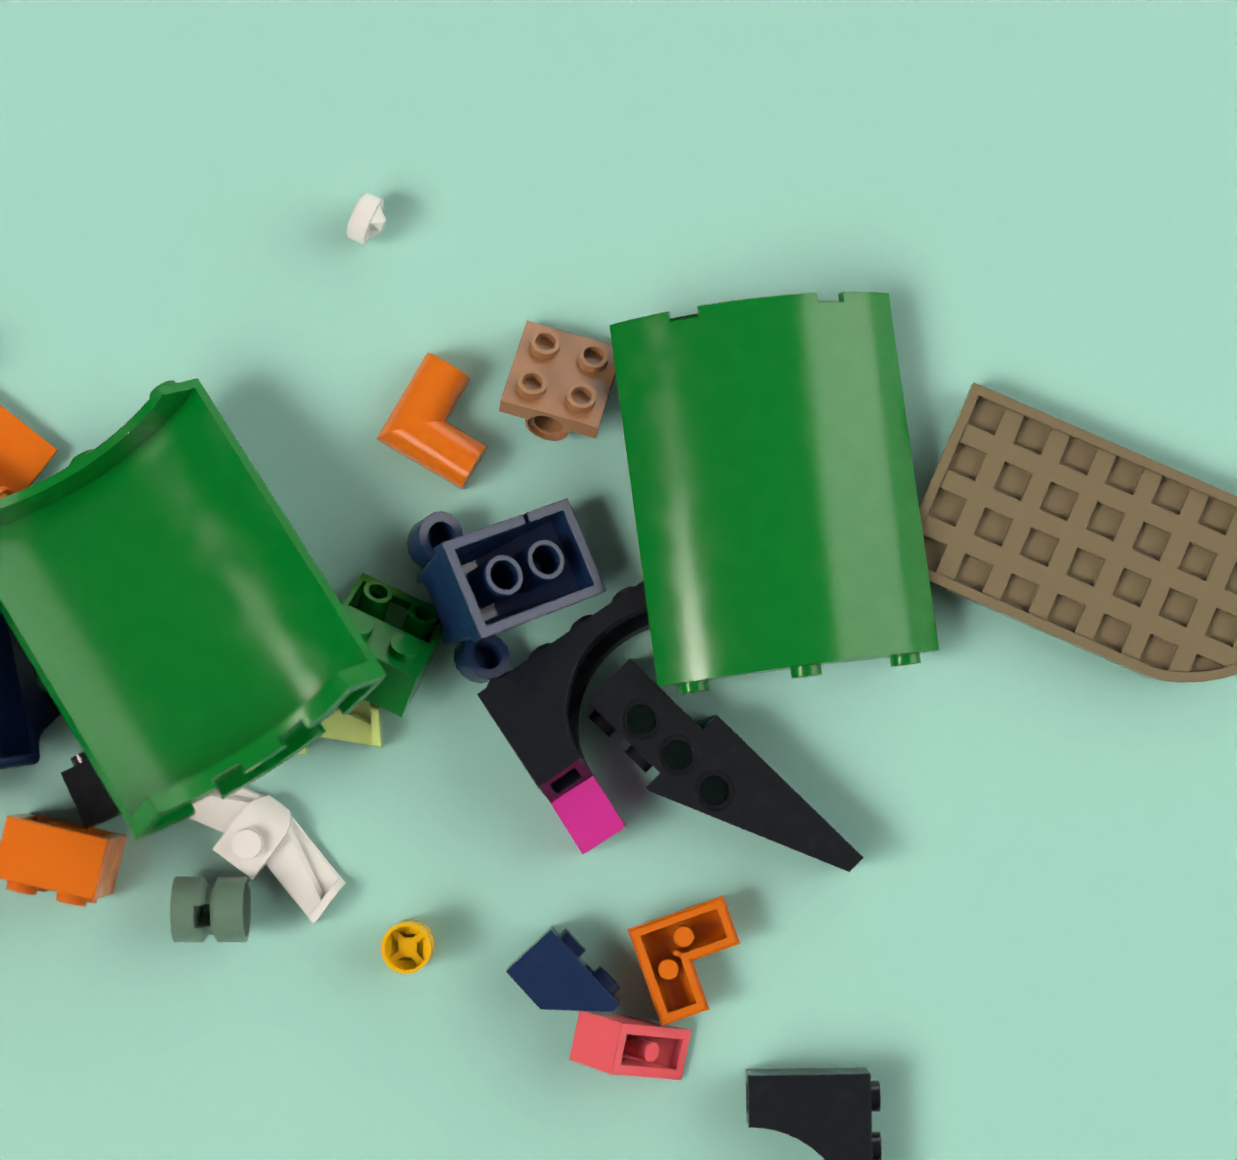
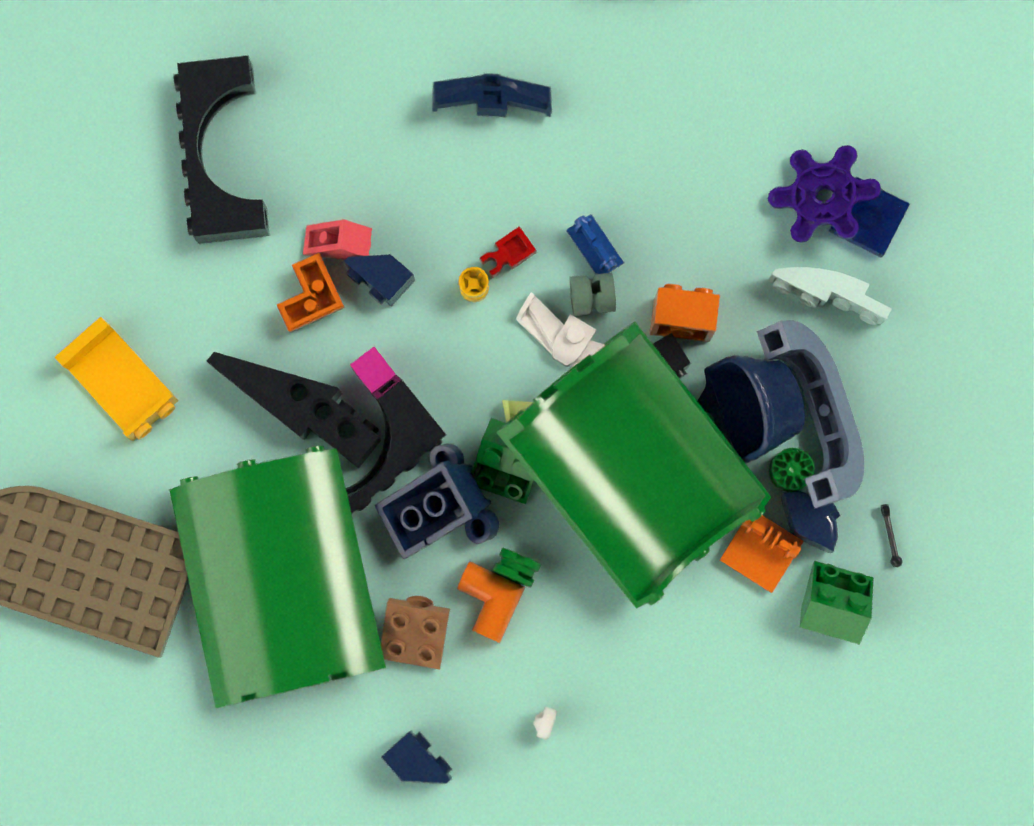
camera: 175 degrees right, 5 degrees down
(199, 994) = (594, 245): none -> blue hinge
(338, 1000) = (512, 250): none -> red plate
(385, 467) = (516, 567): none -> green wheel
(579, 177) = (414, 761): none -> dark blue slope
(1012, 845) = (117, 379): none -> yellow panel

